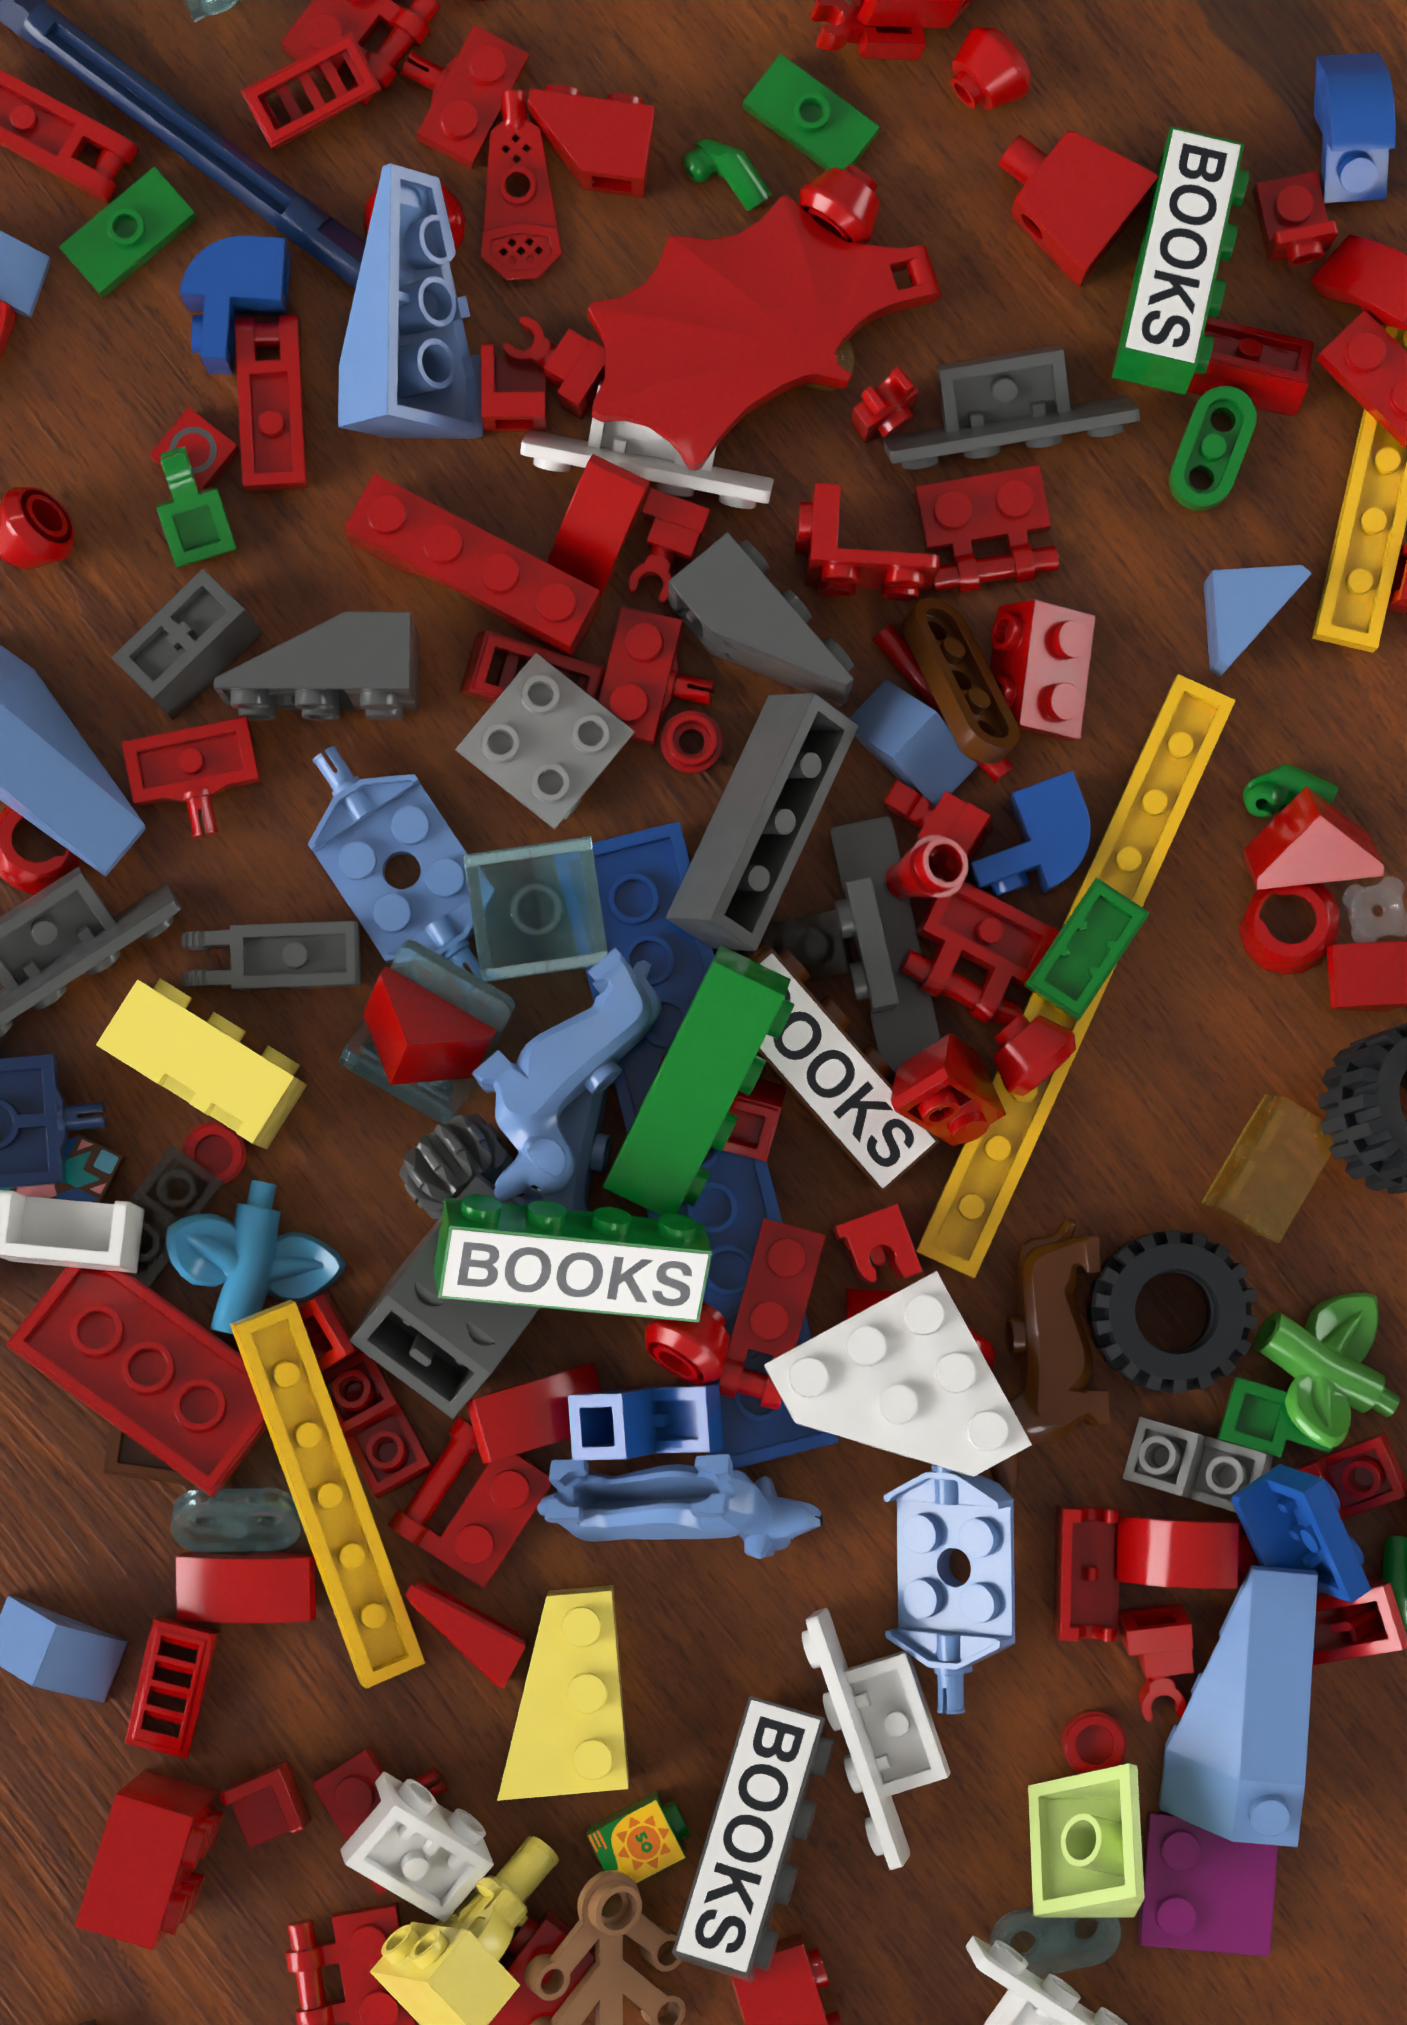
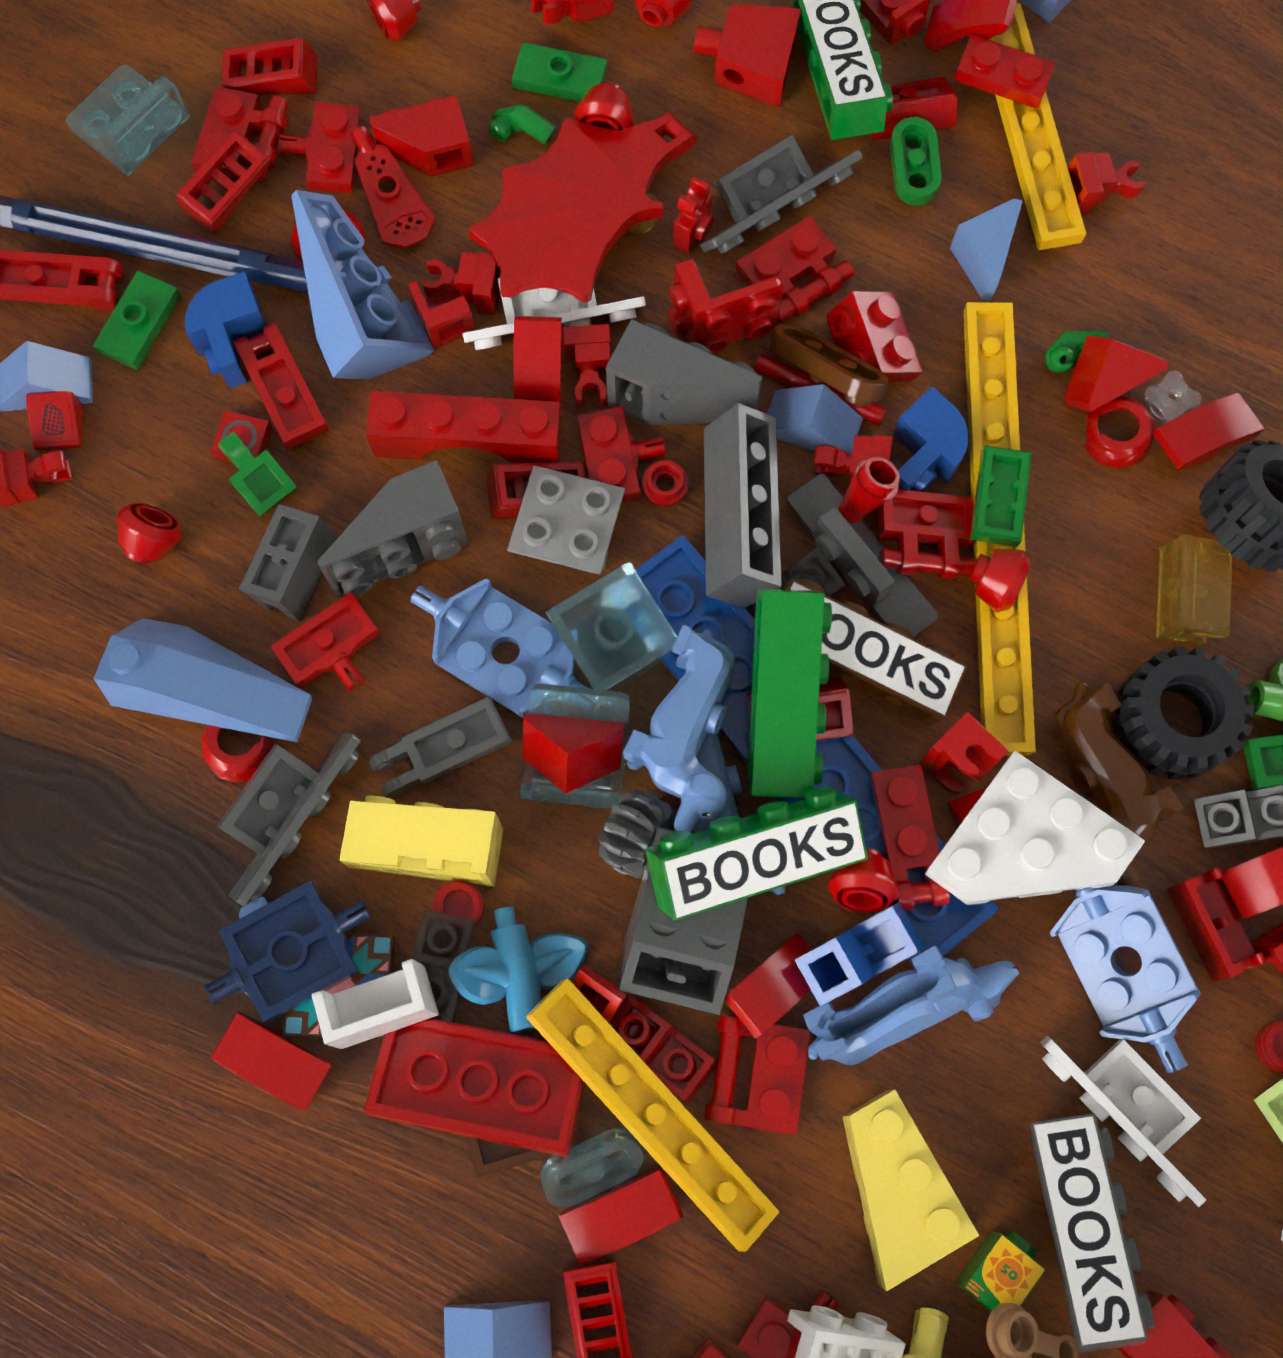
camera: 20 degrees left, 10 degrees down
(477, 1635) = (816, 1173): red slope -> none
(947, 1092) = (957, 630): red slope -> none

